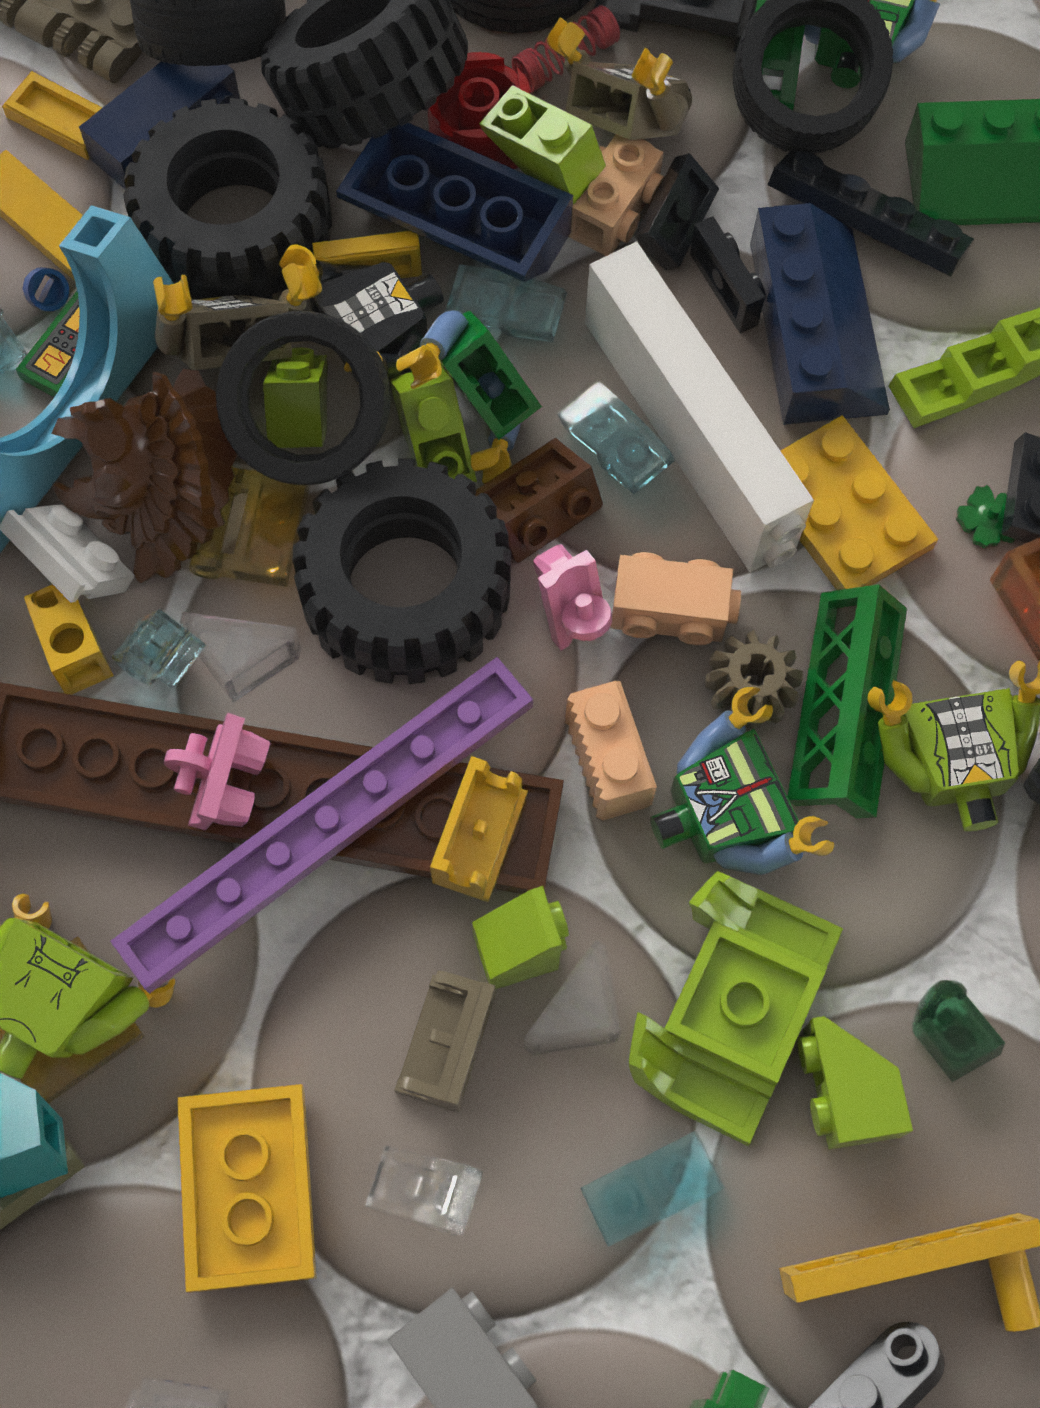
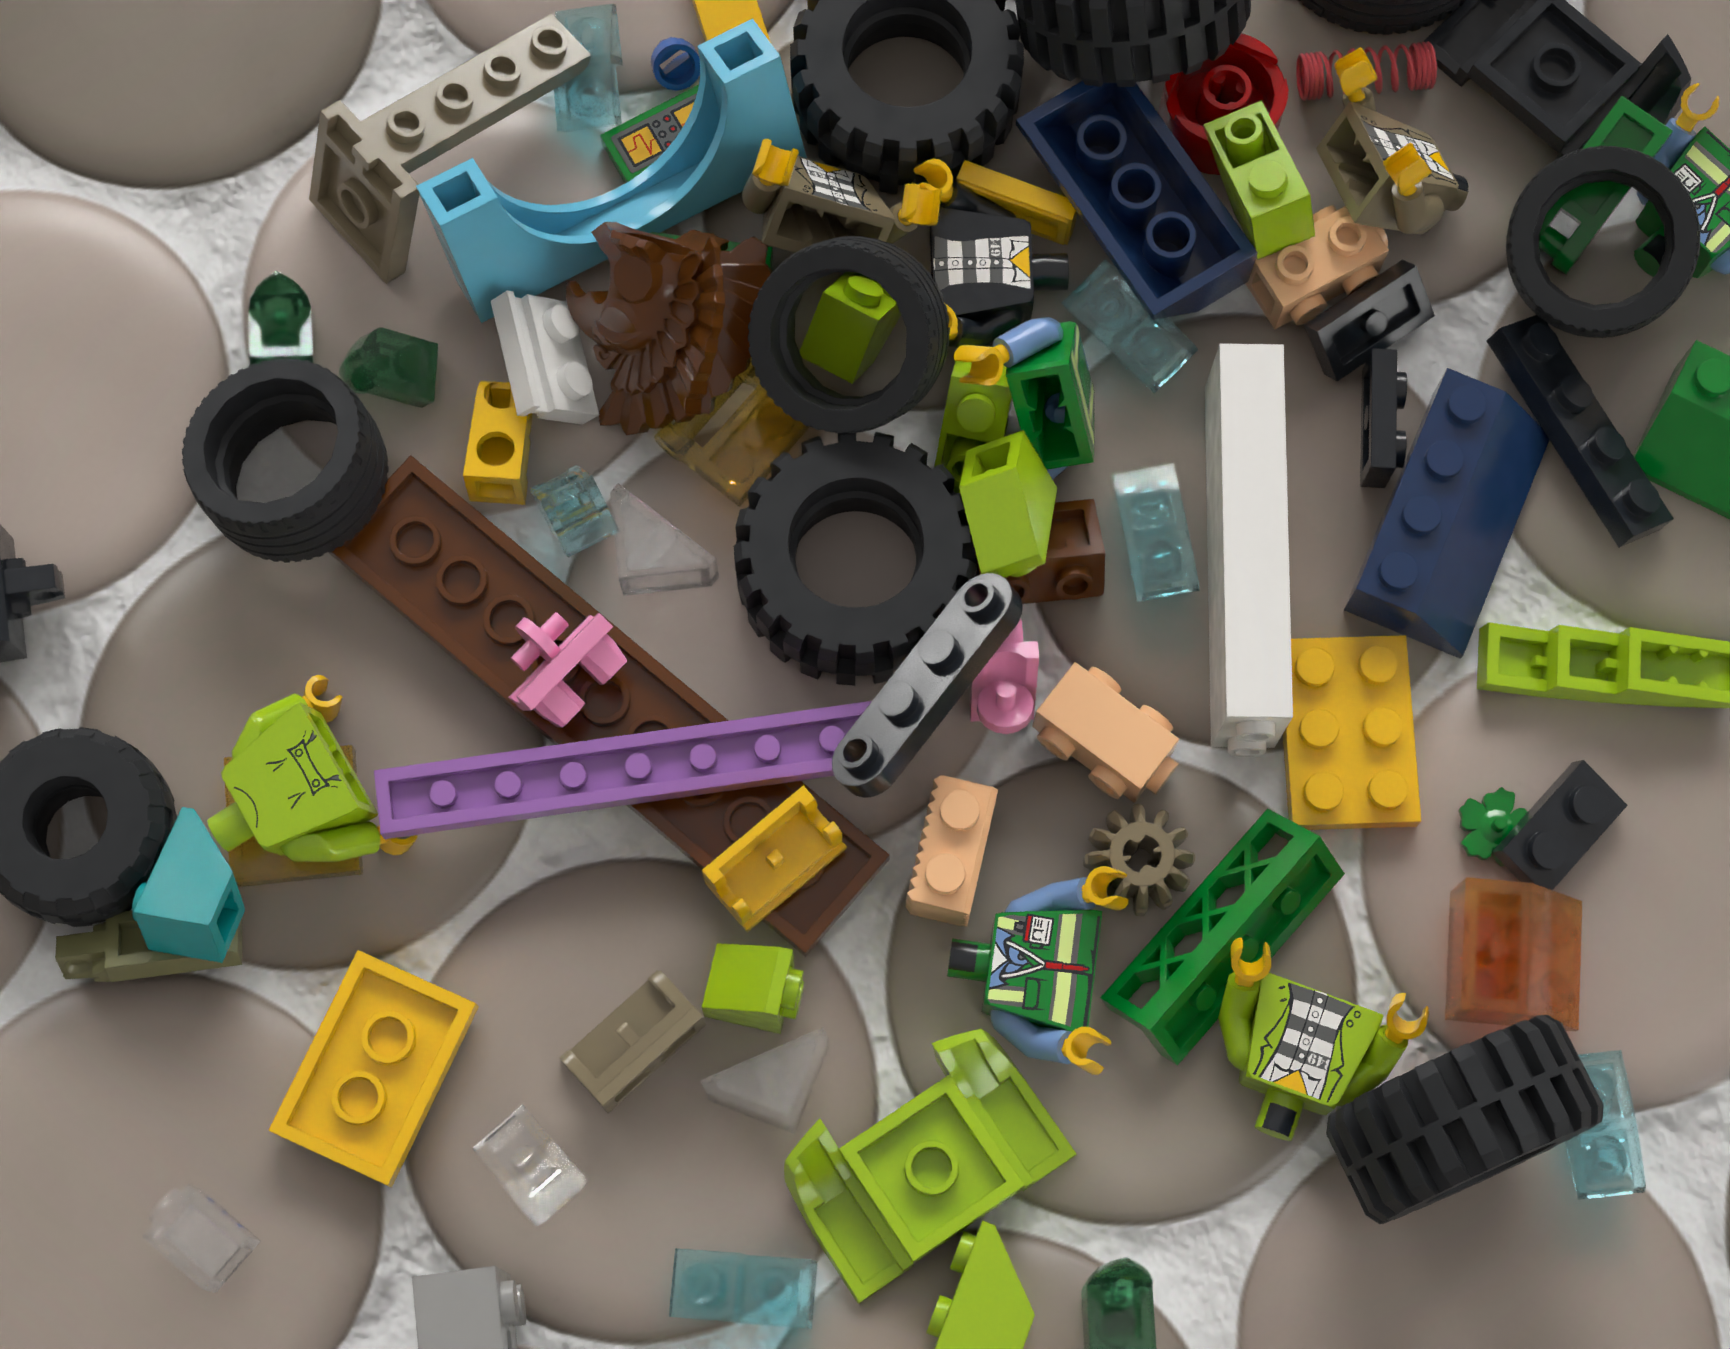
camera: 30 degrees right, 5 degrees up
(501, 465) = (1008, 505): none -> lime slope
(522, 628) = (927, 685): none -> plate

